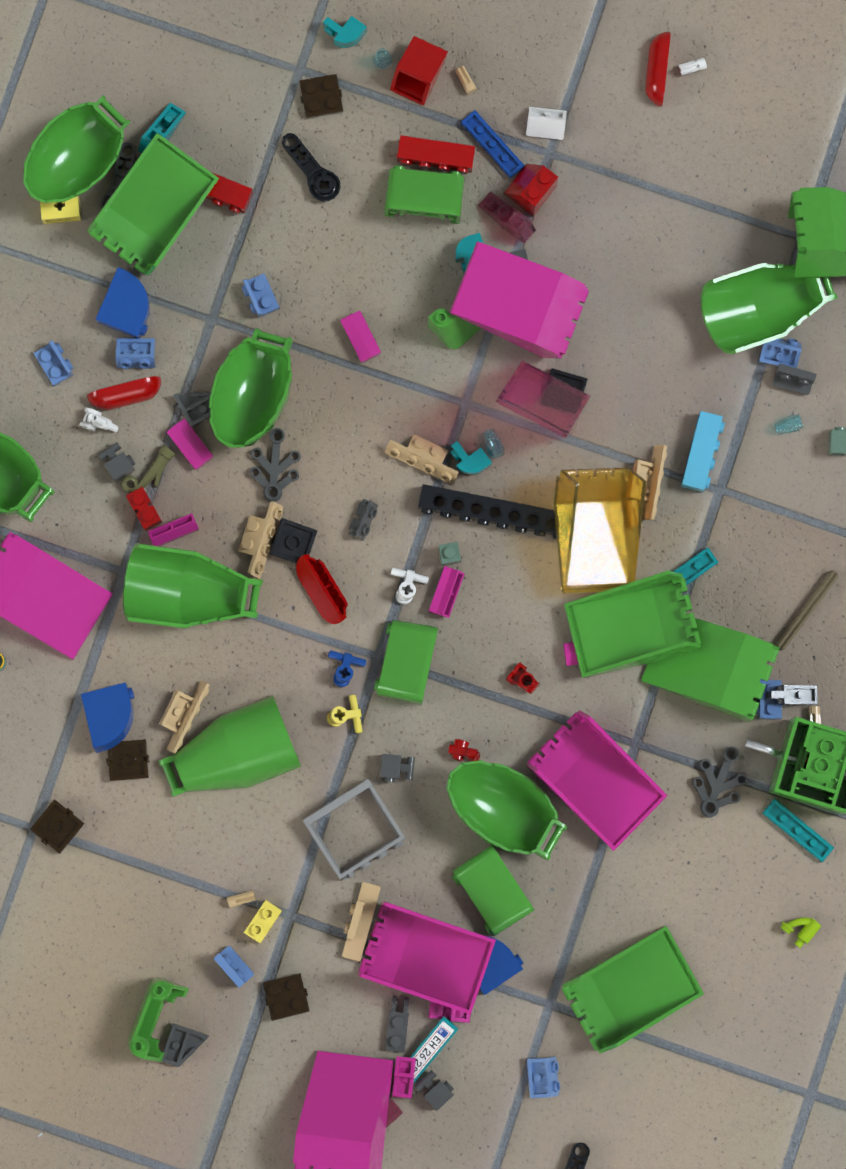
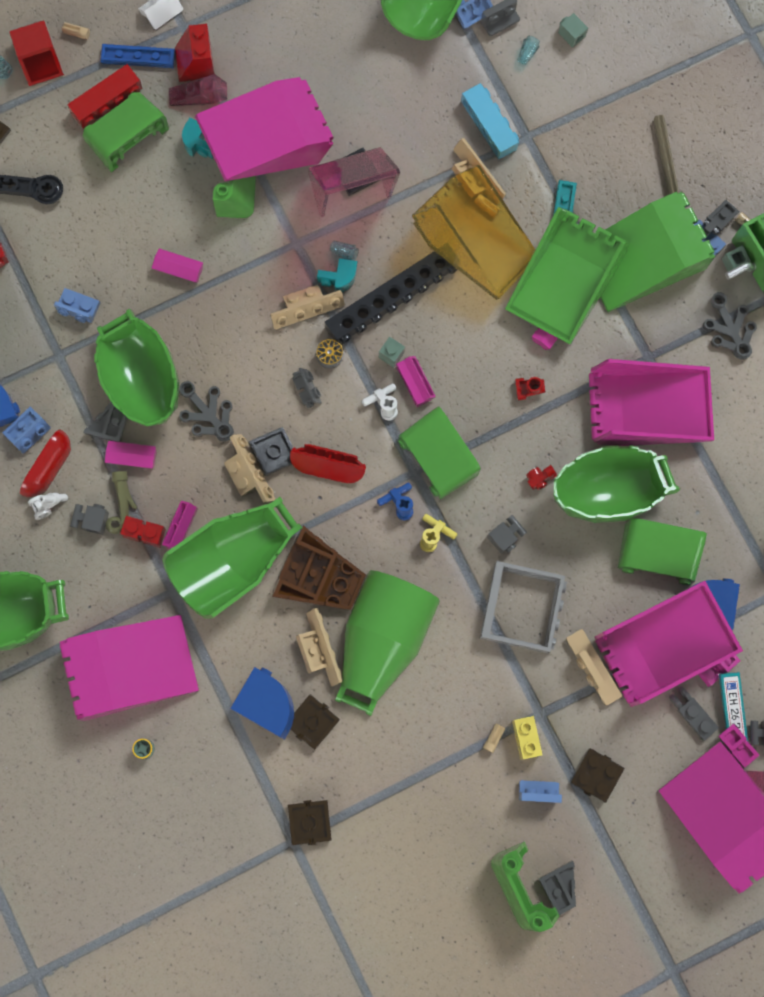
camera: 50 degrees left, 5 degrees down
(234, 662) = (318, 574): none -> reddish brown wedge
(404, 510) = (329, 354): none -> wheel
(773, 737) = (735, 258): none -> sand green brick

